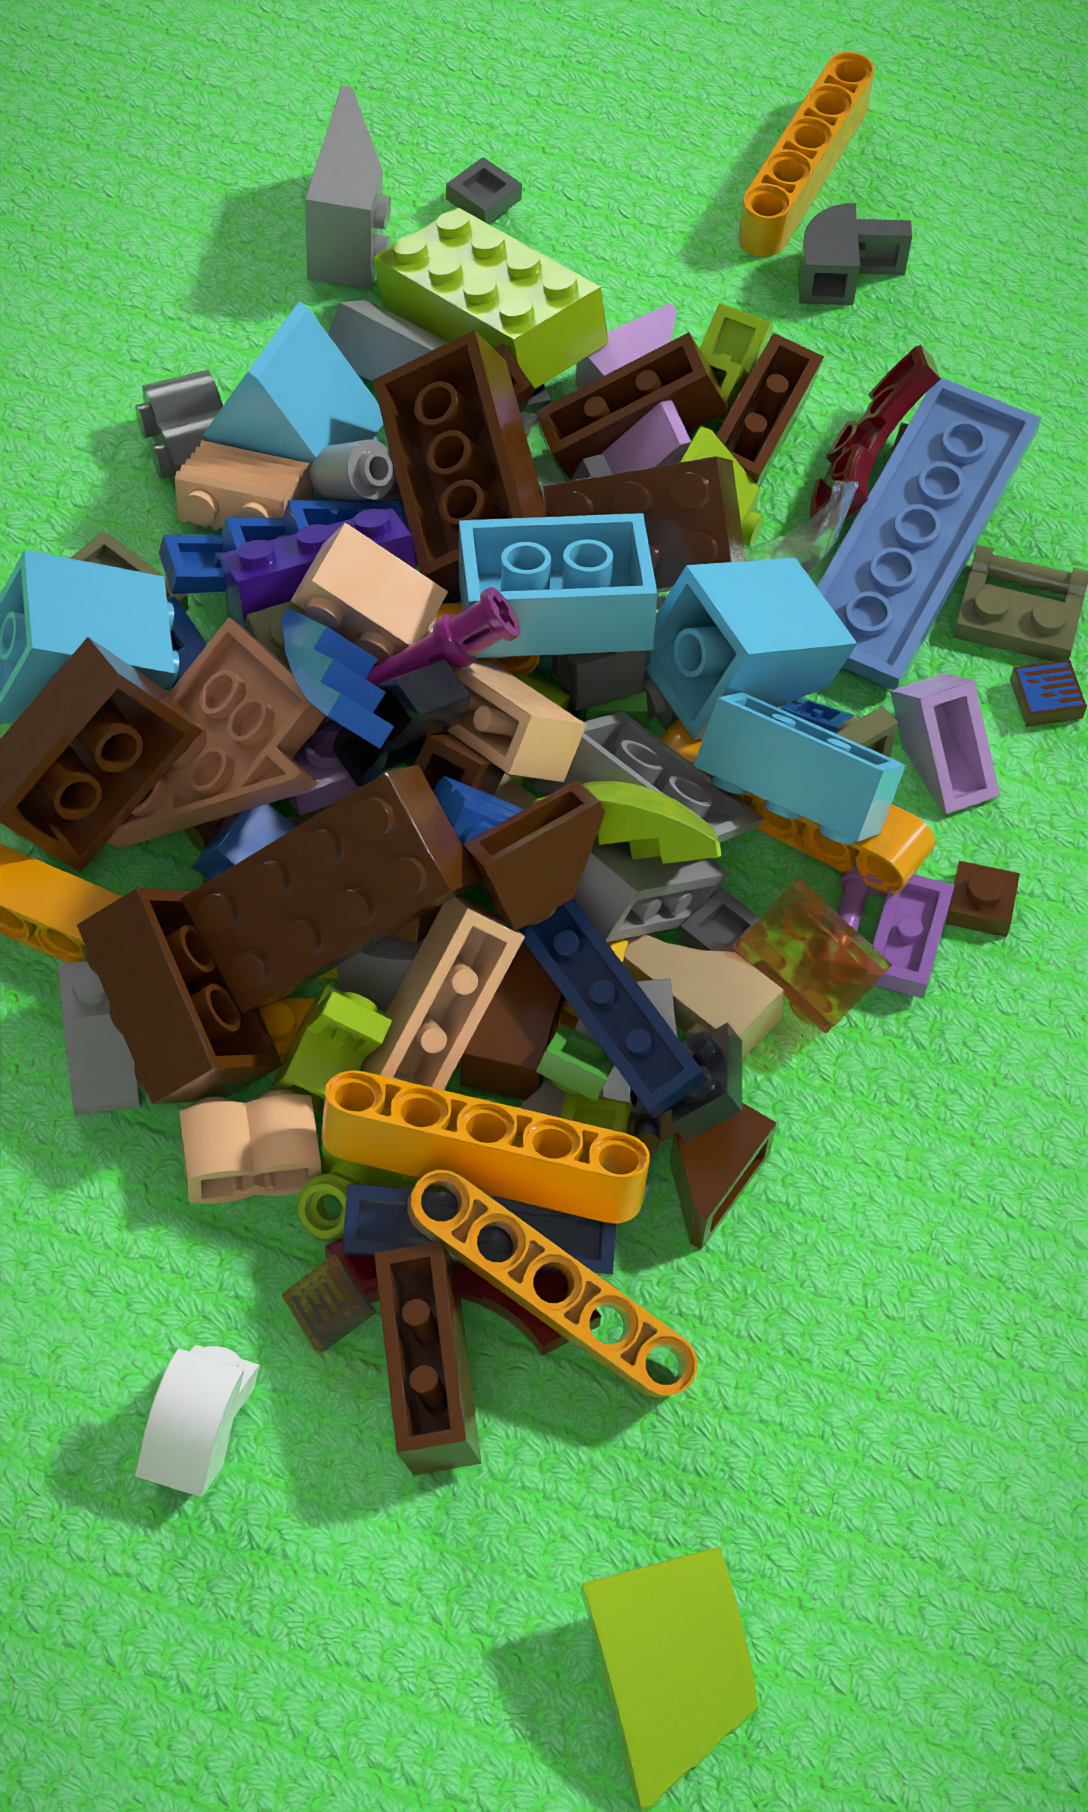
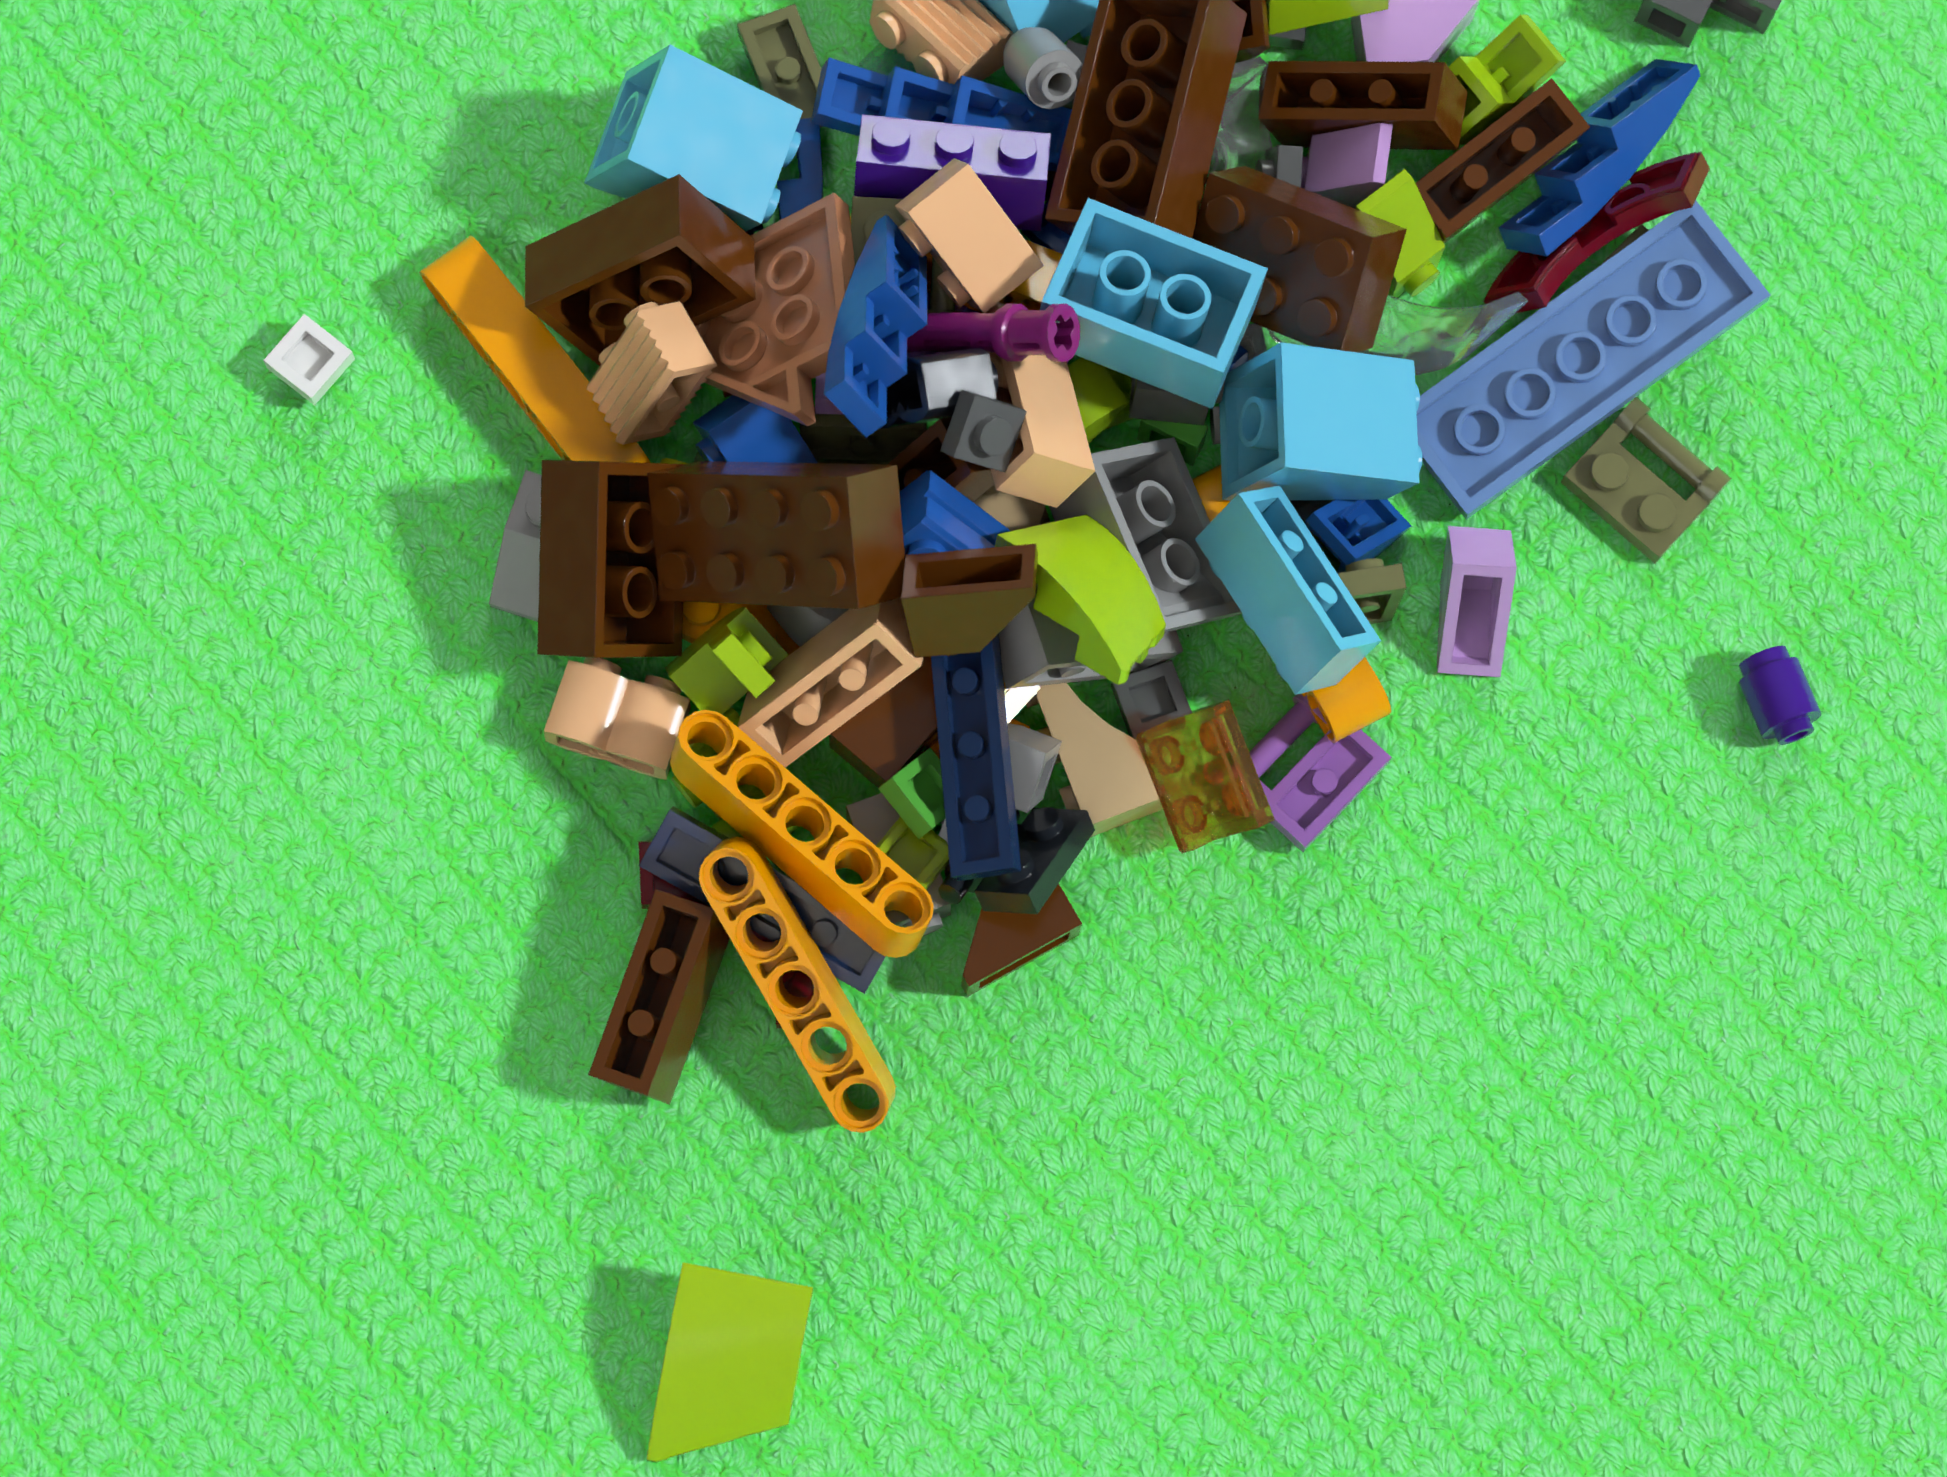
camera: 25 degrees right, 20 degrees up
(134, 828) = (650, 372): none -> light nougat brick
(194, 1417) = (448, 949): white brick -> none
(311, 1205) = (645, 806): lime plate -> none
(328, 1303) = (613, 897): clear orange tile -> none
(474, 721) = (983, 430): none -> dark grey plate
(840, 391) = (1588, 174): none -> blue slope
(983, 898) = (1417, 777): reddish brown plate -> none
(1048, 693) = (1611, 590): reddish brown tile -> none

